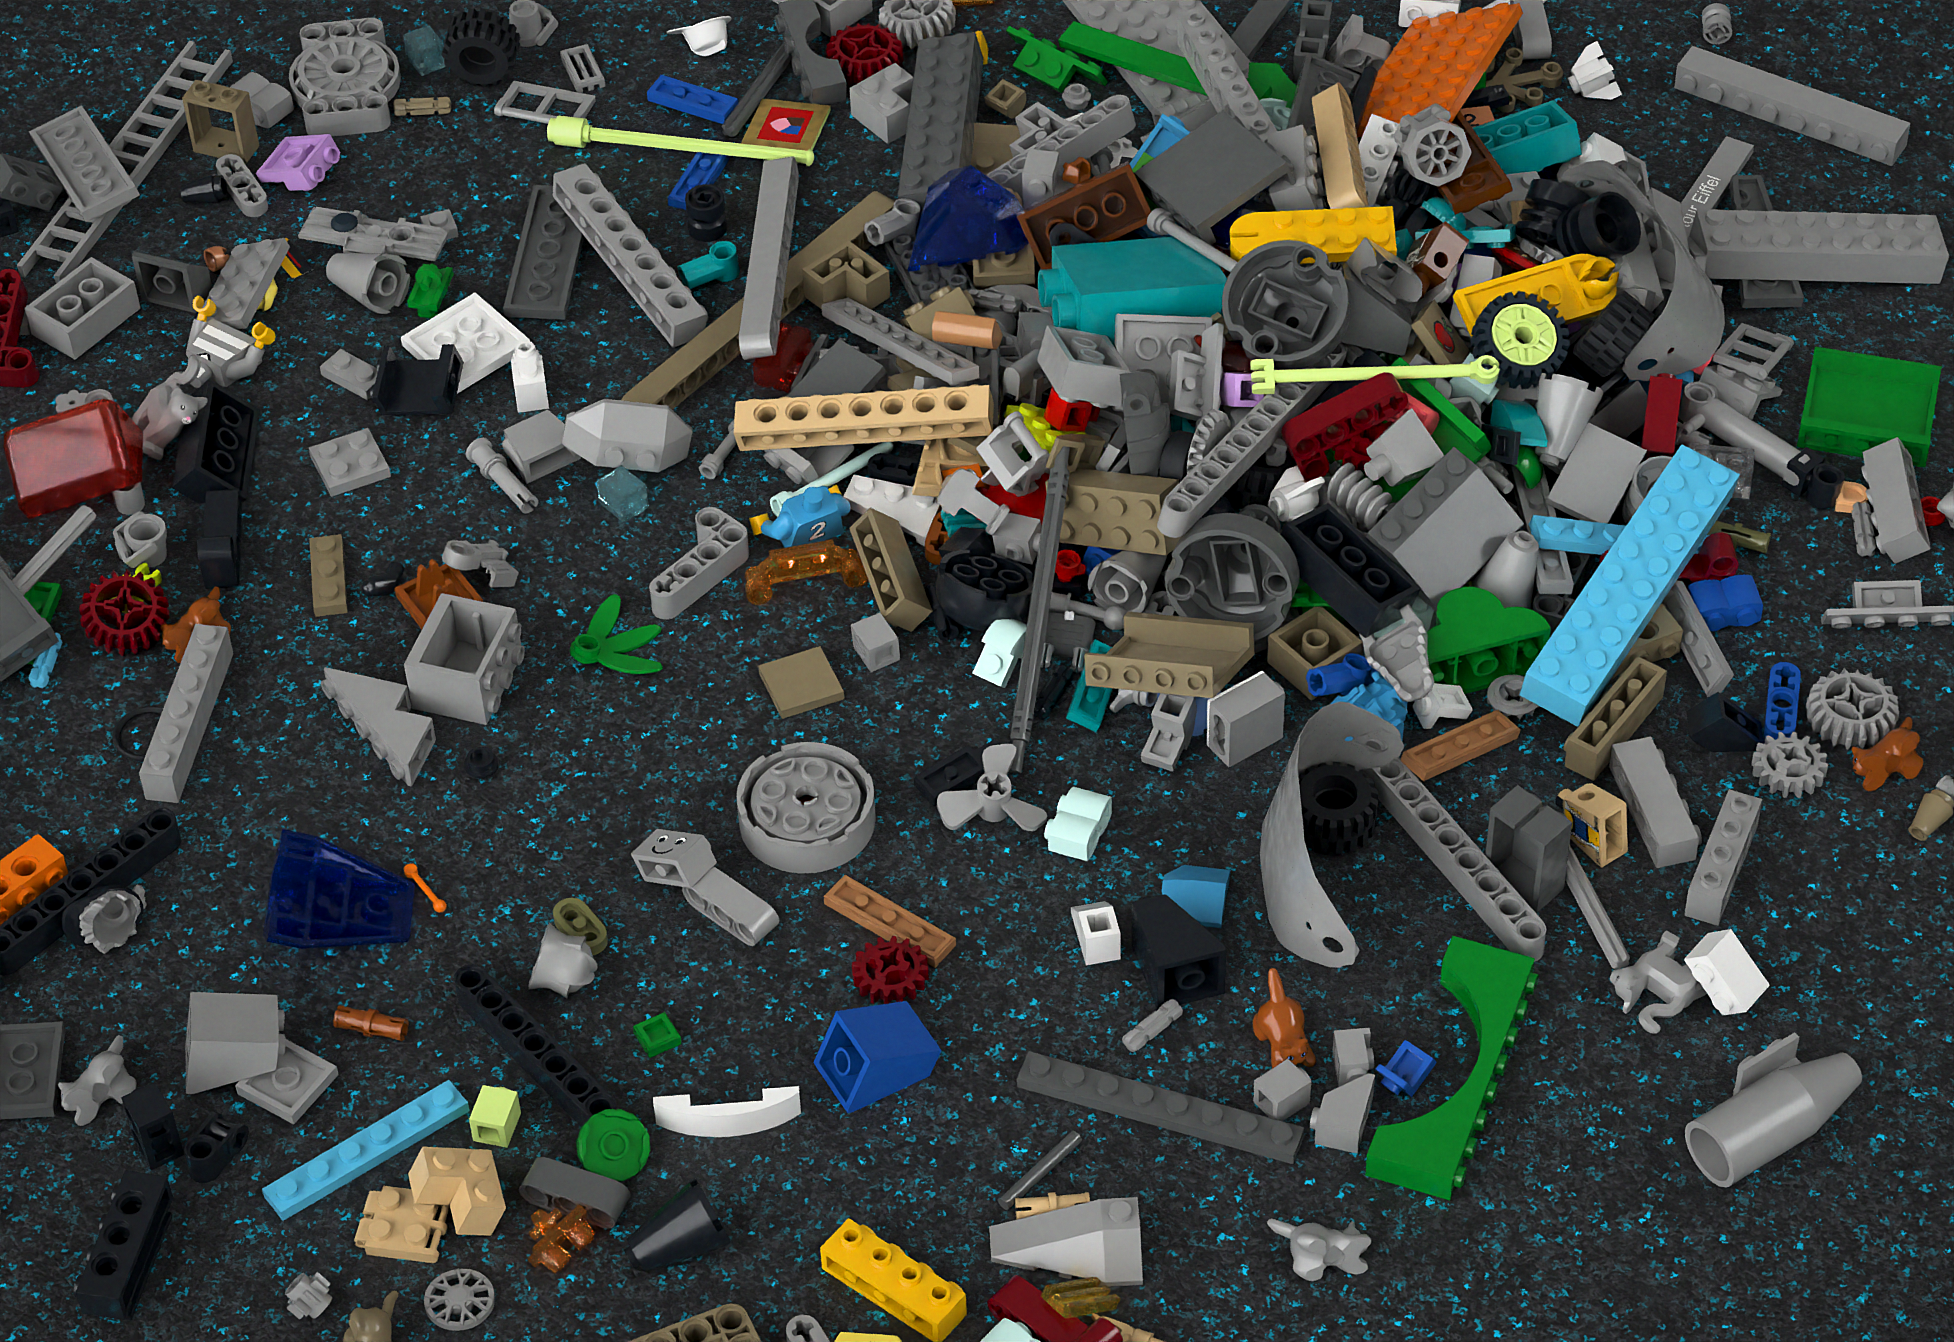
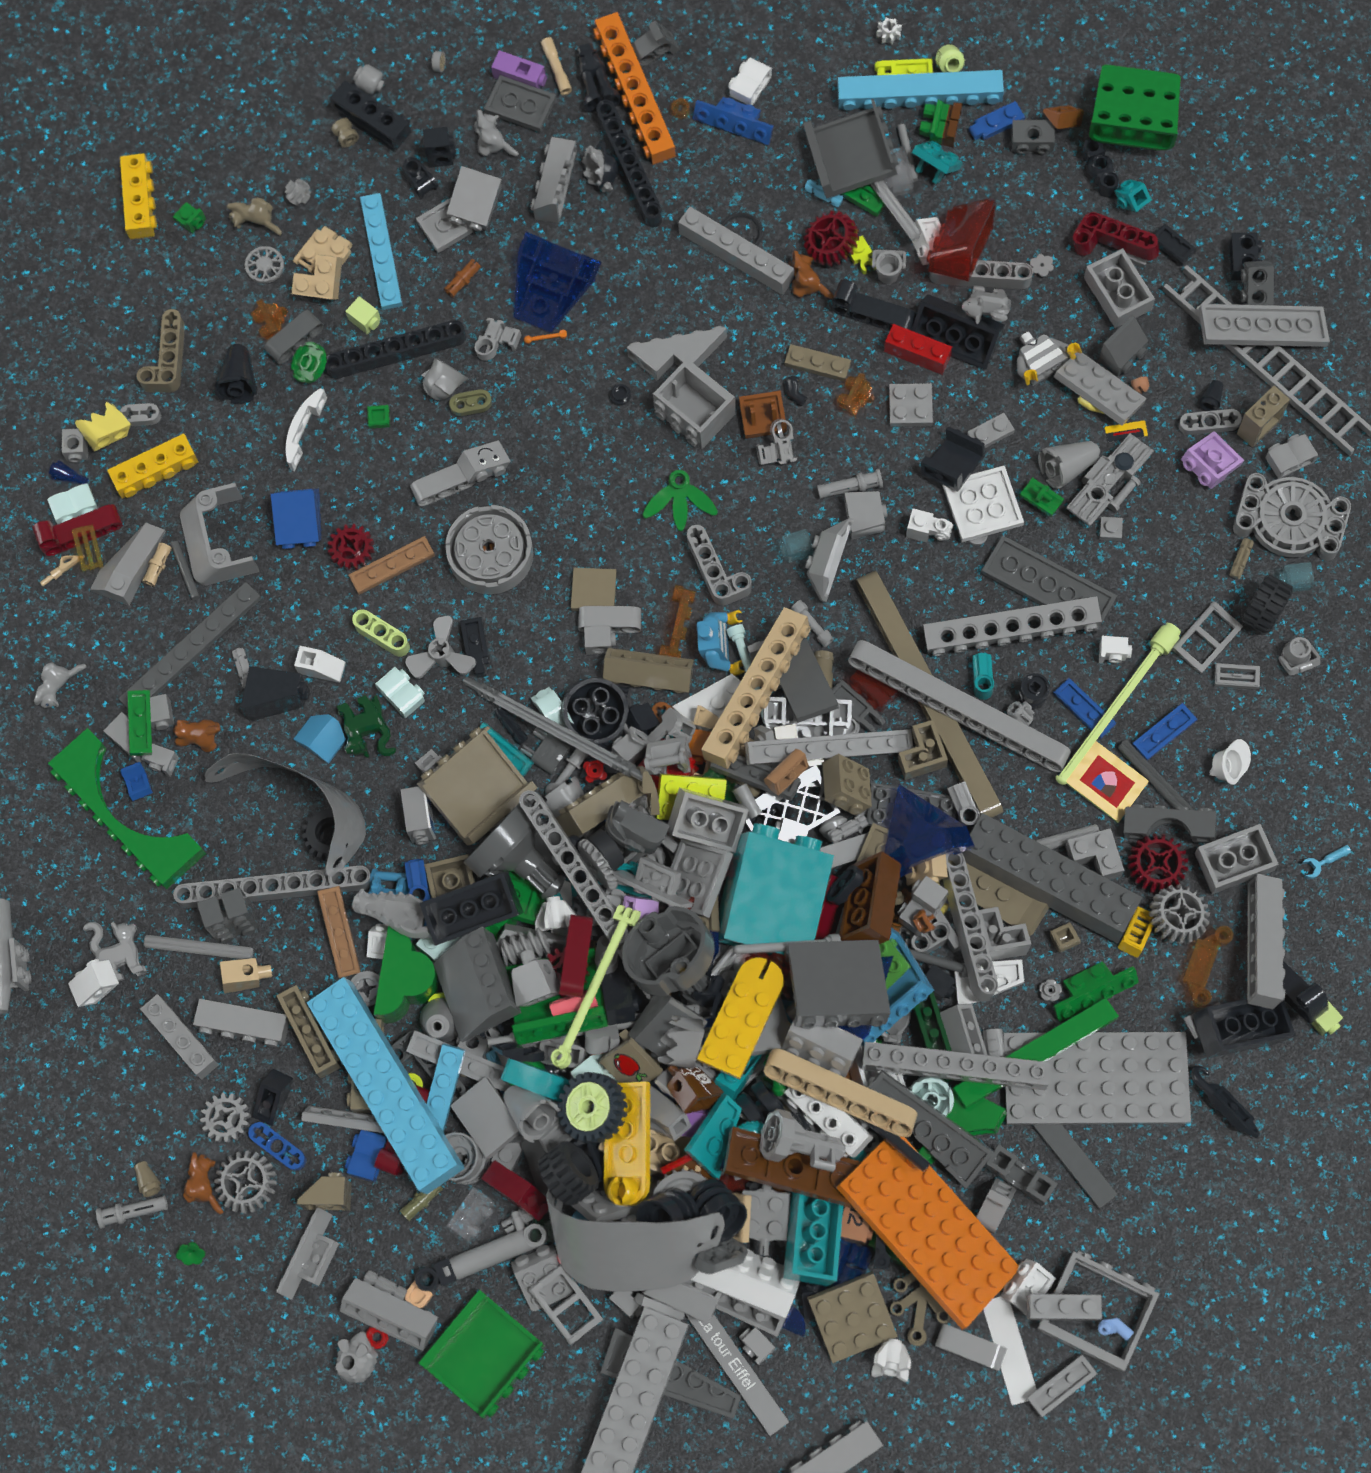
camera: 120 degrees right, 25 degrees up
(51, 1289) = (369, 79): none -> light grey head
(105, 521) = (929, 230): none -> white bracket
(151, 964) = (555, 179): none -> light grey wedge
(167, 1280) = (343, 130): none -> dark tan wheel
(263, 472) = (917, 349): none -> red brick
(362, 508) = (859, 394): none -> clear orange hips
(455, 941) = (498, 333): none -> light grey piece
(610, 168) = (1114, 649): none -> white brick
(735, 214) = (1021, 712): none -> light grey gear
(839, 642) = (620, 618): none -> light grey beam
(876, 137) = (1061, 839): none -> light grey axle
(978, 1161) = (207, 564): none -> light grey windscreen
(1003, 881) = (388, 639): none -> yellowish green beam
(1151, 843) = (364, 724): none -> dark green animal
(1320, 1080) = (139, 722): none -> green plate
(1585, 111) = (852, 1317): none -> dark tan plate
(1669, 178) = (756, 1345): none -> light grey brick
(1805, 608) = (328, 1194): none -> dark tan slope

